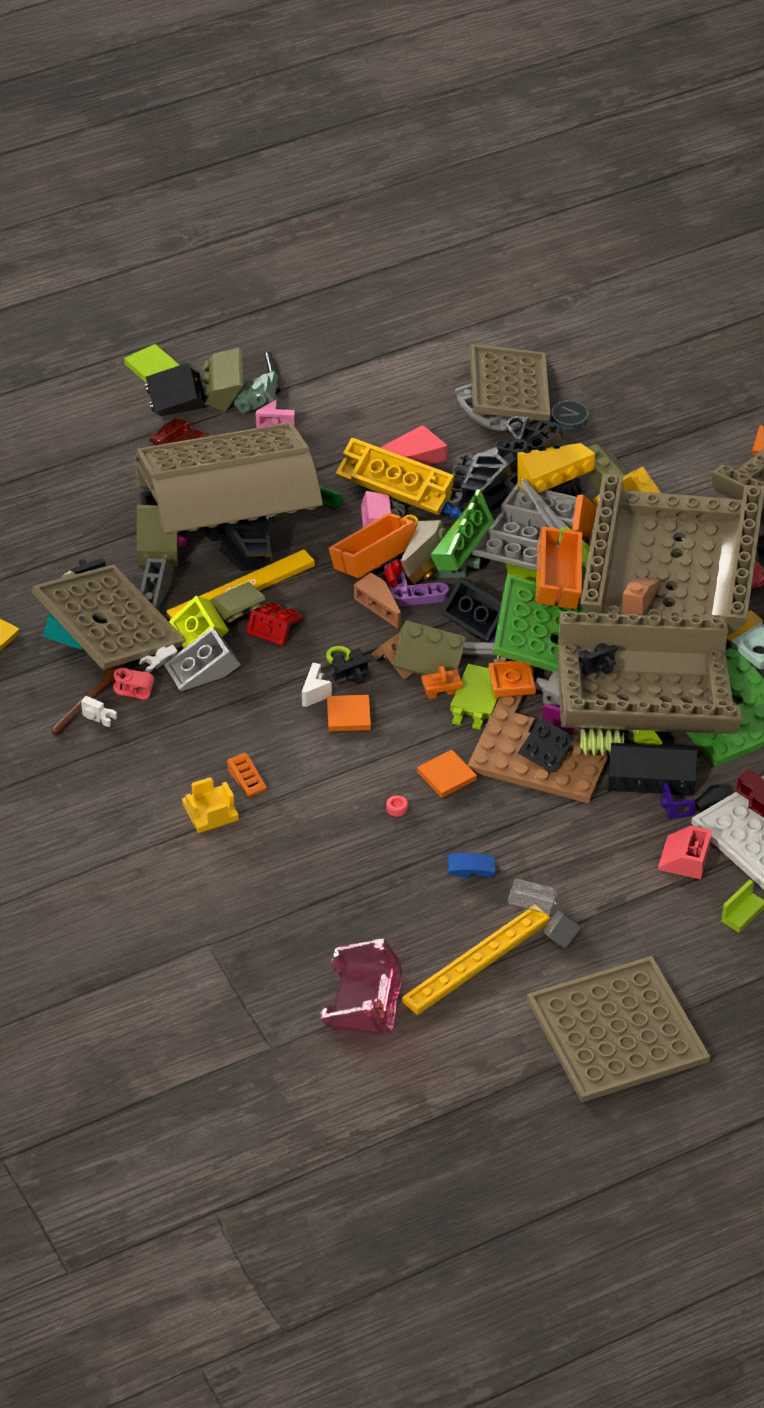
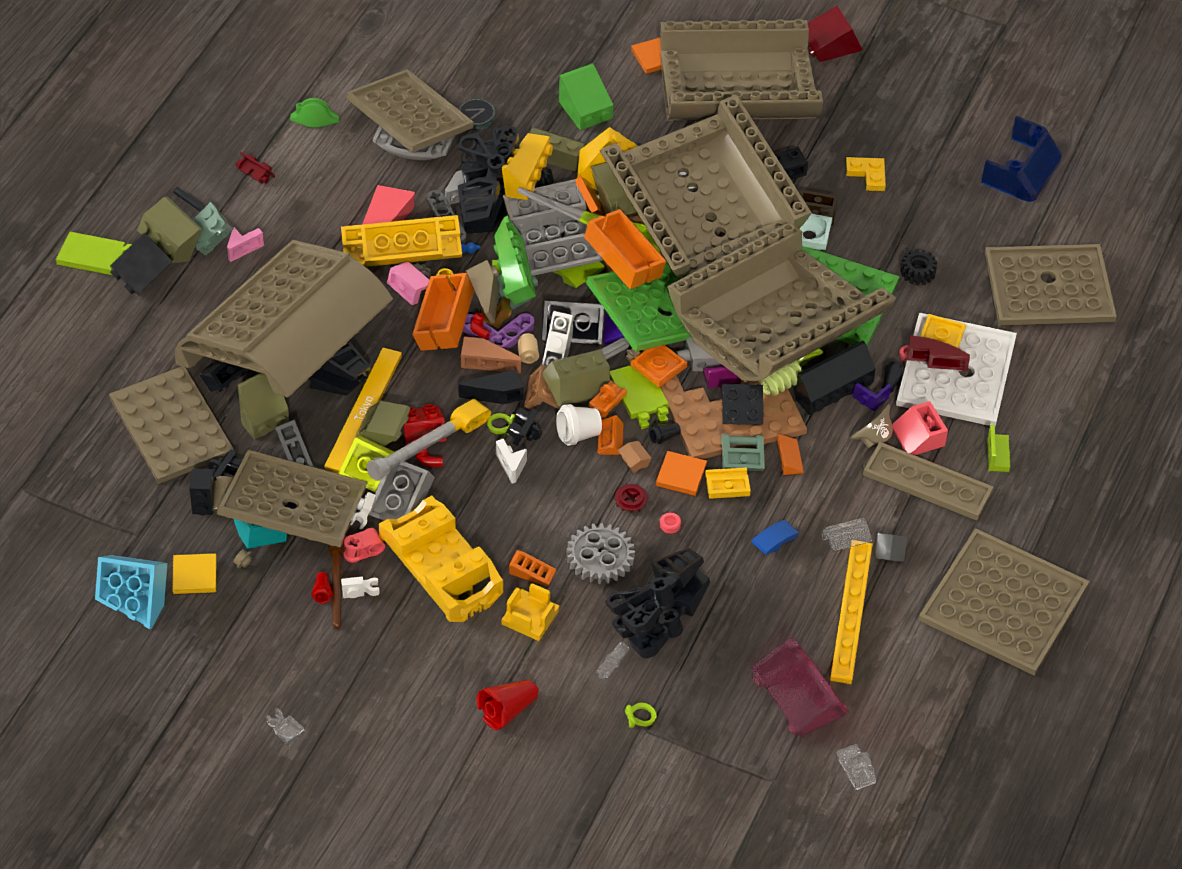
camera: 40 degrees left, 5 degrees up
(35, 643) = (243, 559): none -> dark tan plate
(48, 568) = (202, 491): none -> black brick
(69, 698) = (322, 589): none -> red cone
(86, 519) = (171, 424): none -> dark tan plate
(118, 857) = (505, 702): none -> red cone
(174, 431) = (174, 307): clear red slope -> none
(175, 727) = (442, 559): none -> yellow piece
(211, 924) = (632, 720): none -> lime piece
(236, 879) = (612, 660): none -> clear axle
(251, 651) = (429, 461): none -> red arm
(309, 633) = (466, 417): none -> piece
(312, 794) = (600, 553): none -> light grey gear
(344, 371) = (260, 171): none -> dark red hinge
(348, 713) = (556, 467): orange tile -> none
(349, 851) = (675, 584): none -> black piece
(349, 1078) = (857, 766): none -> clear slope
(360, 626) = (495, 388): none -> black slope
(376, 764) = (633, 491): none -> dark red gear
(395, 687) = (577, 424): none -> white piece
(419, 610) = (528, 348): none -> tan brick
(419, 714) = (611, 436): none -> orange slope
(419, 738) = (635, 456): none -> medium nougat piece
(434, 350) = (314, 113): none -> bright green hat
(448, 612) = (558, 338): none -> white slope
(463, 734) = (662, 432): none -> black cone
(475, 801) = (727, 483): none -> yellow plate
(509, 790) = (743, 457): none -> sand green plate
(553, 810) = (789, 455): none -> orange slope
(600, 660) = (723, 308): black hips -> none
(639, 595) = (706, 238): nougat slope -> none
(647, 831) = (877, 430): none -> dark tan hat
(653, 897) = (928, 481): none -> dark tan plate
(670, 443) = (585, 97): none -> bright green slope

